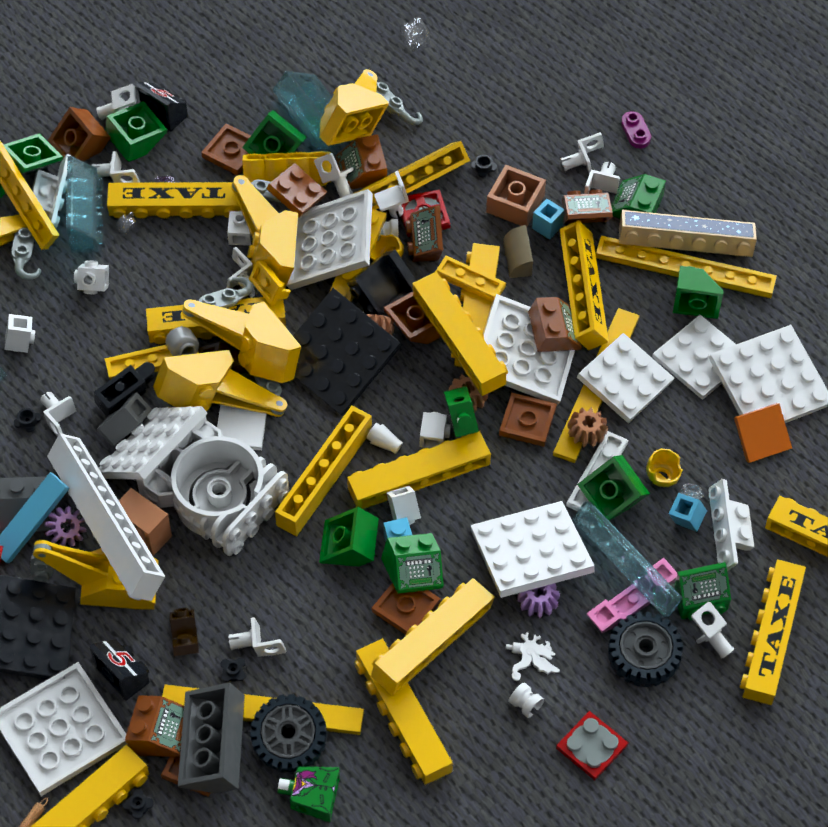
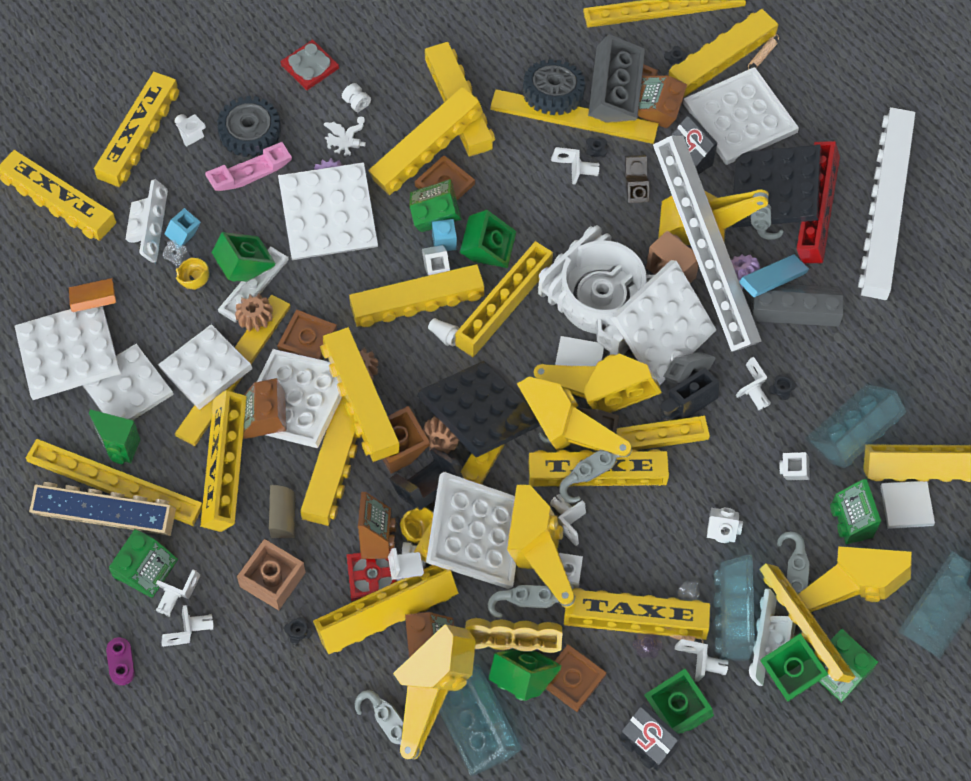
camera: 175 degrees left, 5 degrees up
(79, 135) = (742, 709): dark orange slope -> none
(117, 102) = (697, 741): white bracket -> none
(182, 341) = (633, 430): light grey head -> none
(268, 283) = (544, 481): yellow plate -> none
(296, 190) = (505, 590): dark orange plate -> none
(312, 791) = (537, 46): green torso -> none
(335, 175) = (460, 614): white bracket -> none
(434, 429) = (397, 332): white brick -> none
(461, 412) = (370, 333): green torso -> none
(470, 279) = (337, 471): yellow tile -> none
(548, 219) = (242, 542): medium azure brick -> none
(586, 207) = (200, 544): slope -> none
(627, 559) = (247, 193): clear light blue plate -> none
(703, 586) = (188, 161): slope -> none

